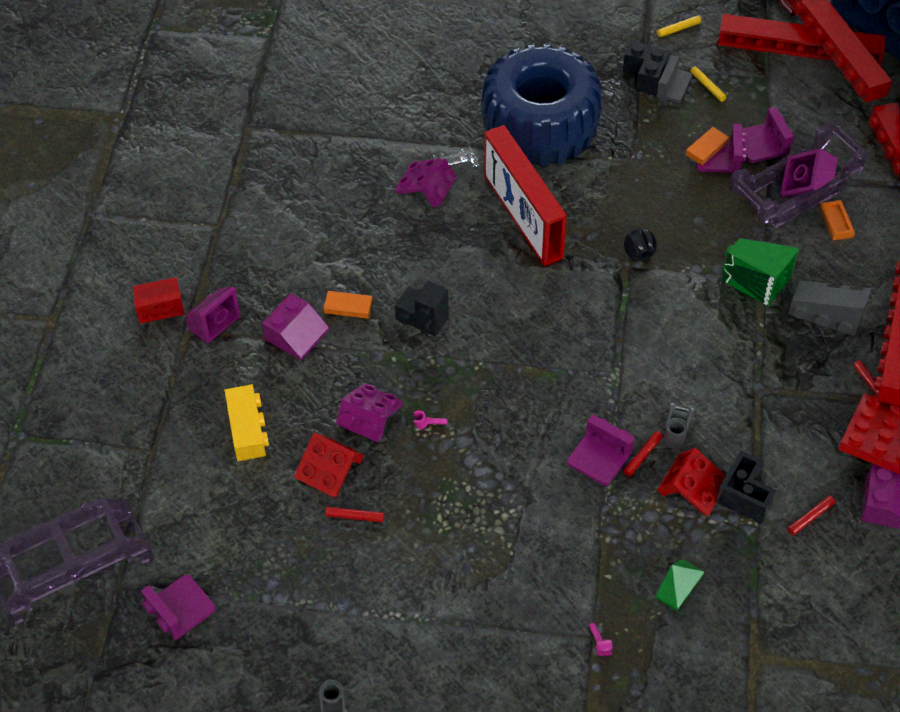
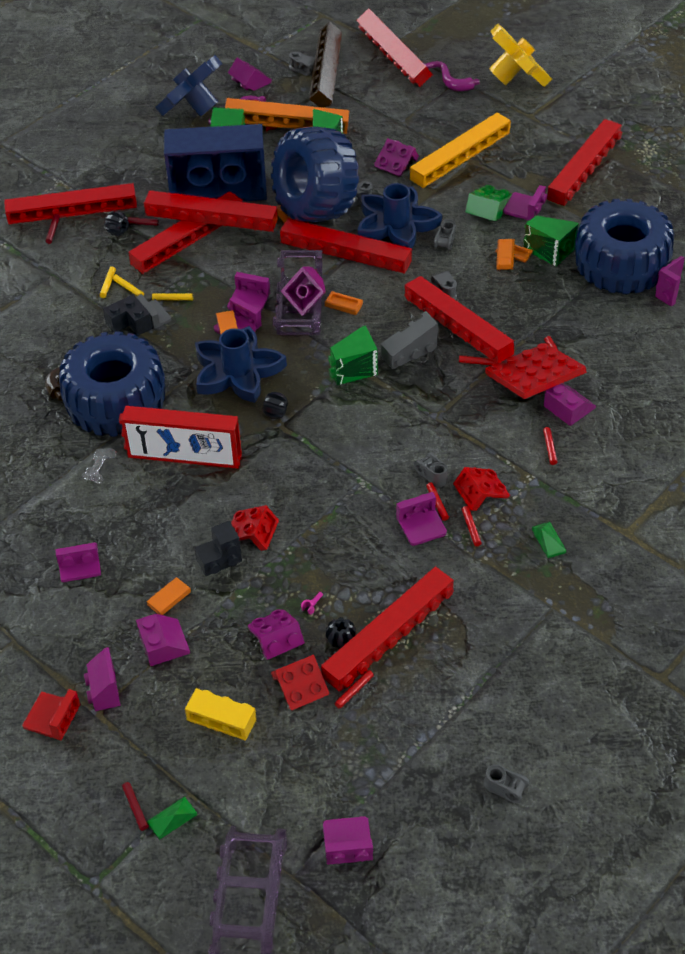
camera: 55 degrees left, 5 degrees down
(110, 418) = (135, 807): none -> dark red piece
(117, 454) = (171, 818): none -> green slope
(331, 214) = (78, 562): none -> magenta bracket
(406, 463) = (340, 632): none -> black piece
(431, 177) = (101, 488): magenta bracket -> none
(444, 500) = (387, 629): none -> red brick
(477, 319) = (256, 524): none -> red bracket
(603, 647) = (565, 605): dark pink hand -> none
(636, 502) = (471, 526): none -> red piece
(660, 182) = (236, 364): none -> dark blue plant
(688, 44) = (127, 285): none -> yellow piece
(743, 492) = (510, 464): black brick -> none

